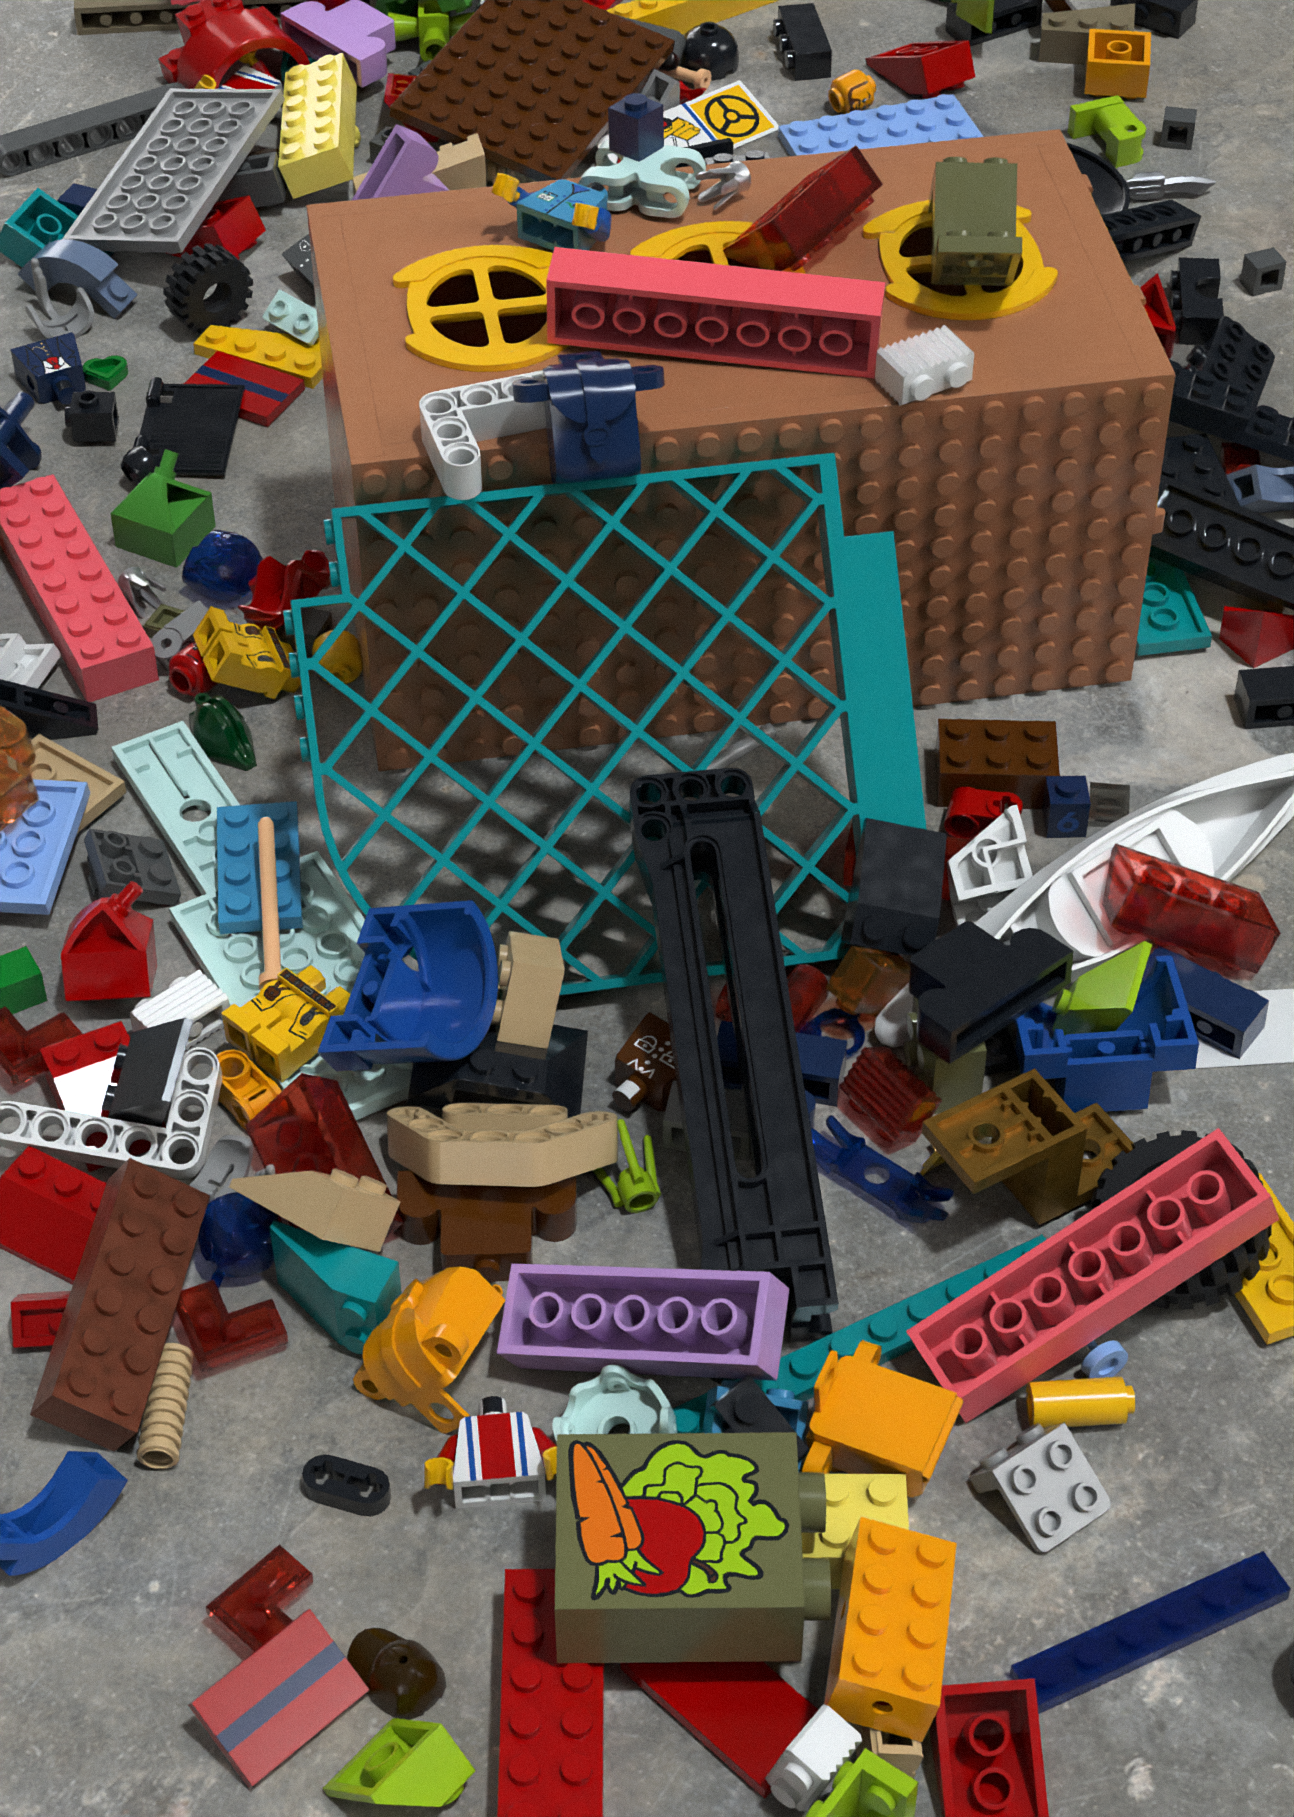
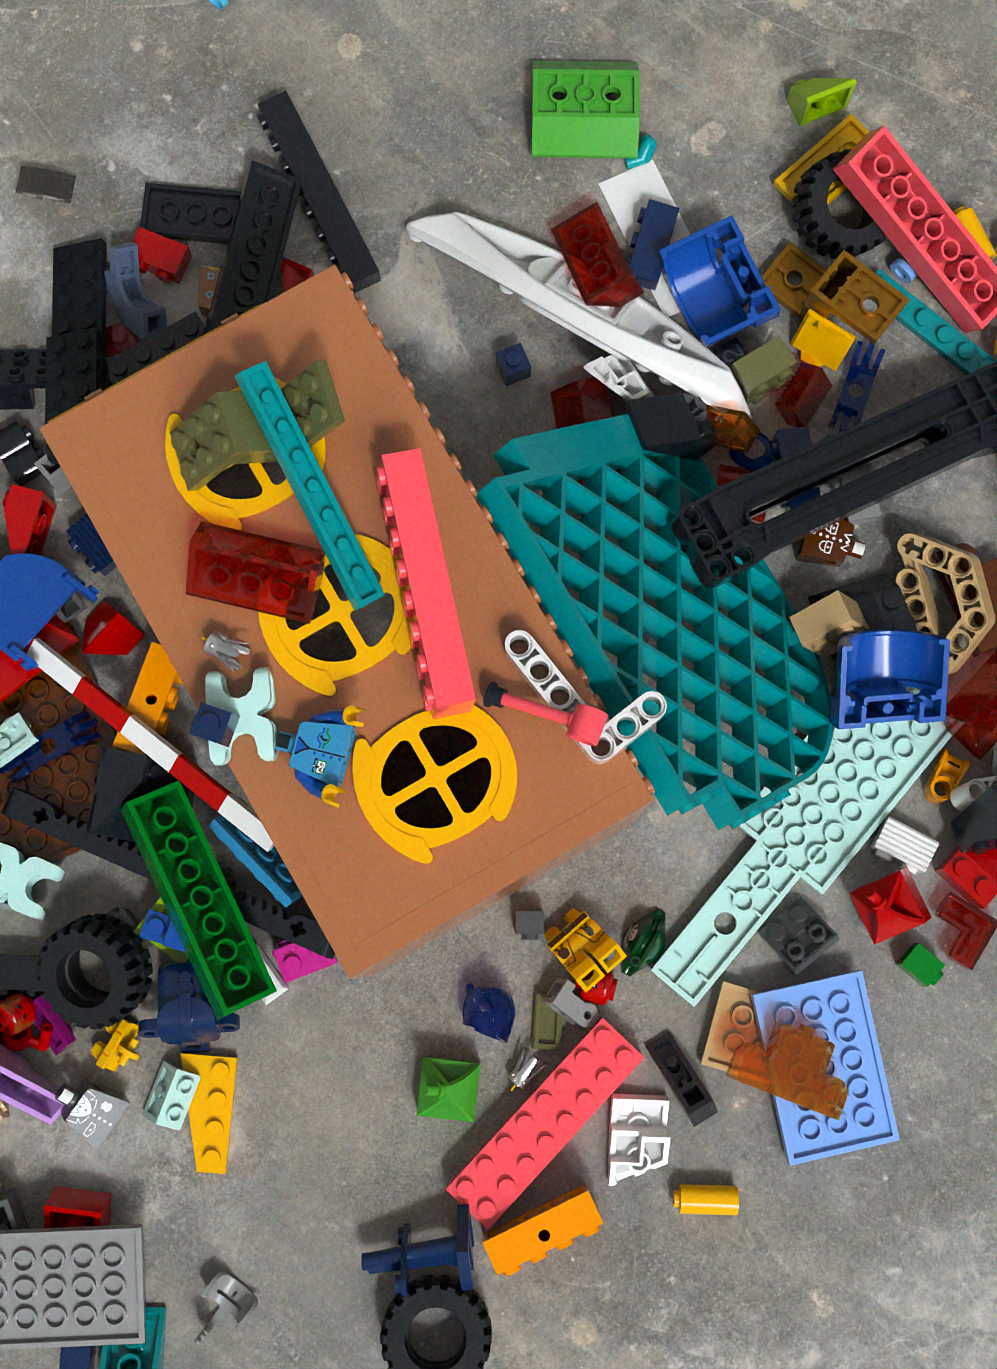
camera: 110 degrees left, 35 degrees up
(50, 368) = (300, 1268): dark blue torso -> none
(84, 267) = (178, 1309): sand blue arch -> none
(93, 416) = (352, 1192): black brick -> none
(105, 372) = (278, 1230): green tile -> none
(139, 463) = (396, 1133): black piece -> none
(195, 424) = (329, 1125): black window -> none
(196, 276) = (175, 1182): black tyre -> none
(240, 870) = (769, 850): dark azure plate -> none
(266, 389) = (262, 1110): red tile -> none
(269, 902) = (865, 794): light nougat bar -> none
(279, 584) = (483, 948): red piece -> none
(284, 1021) = (897, 767): yellow hips -> none
(342, 658) = (549, 891): yellow head -> none
(476, 382) = (583, 724): none -> coral piece
(590, 414) = (567, 631): dark blue piece -> none
(636, 1187) = (920, 521): lime plant -> none
(904, 230) = (309, 485): none -> teal plate
(924, 365) = (407, 426): white brick -> none
(975, 809) = (537, 417): red piece -> none
(978, 985) = (743, 345): black brick -> none
(996, 757) = (486, 414): reddish brown brick -> none
(1103, 995) = (693, 286): lime slope -> none
(1108, 802) = (493, 340): clear smoke plate -> none

